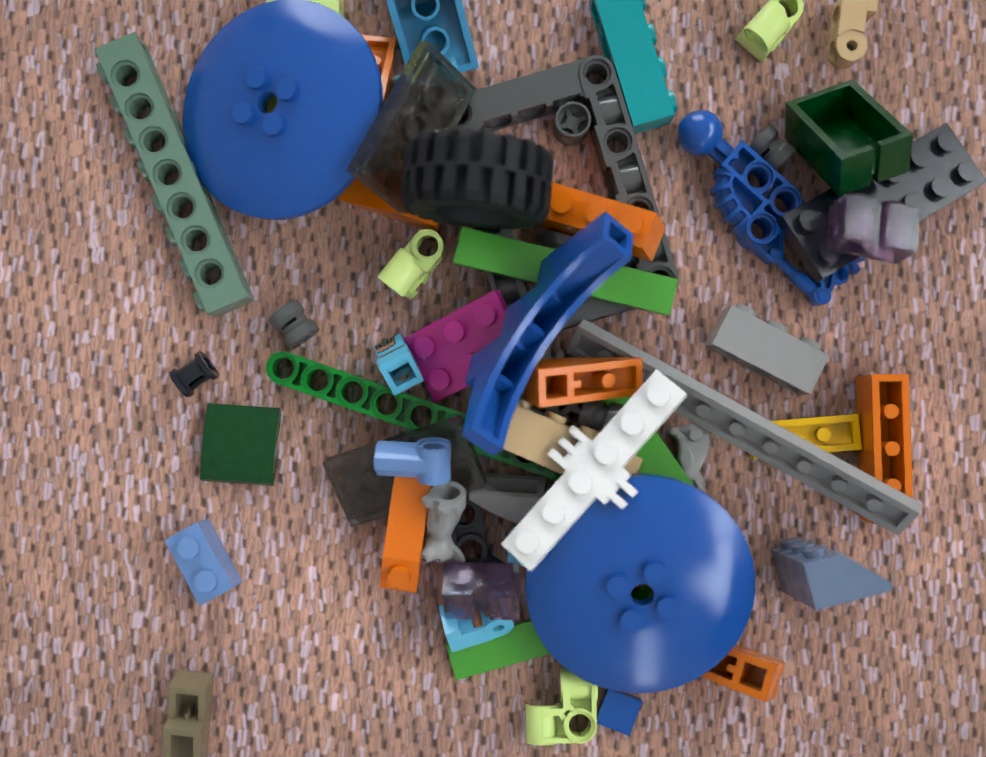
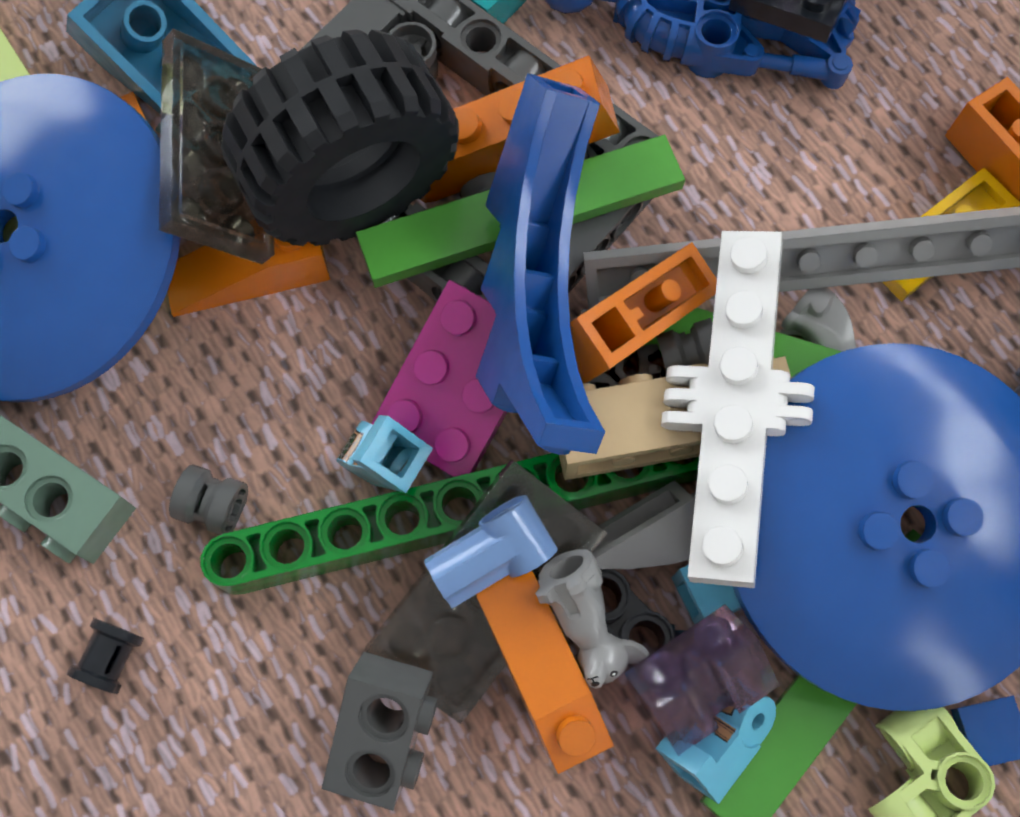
camera: 30 degrees left, 15 degrees down
(240, 444) = (230, 713): dark green slope -> none
(305, 506) = (372, 728): none -> dark grey brick
(410, 268) = (320, 331): yellowish green piece -> none
(768, 349) = (825, 163): light grey brick -> none

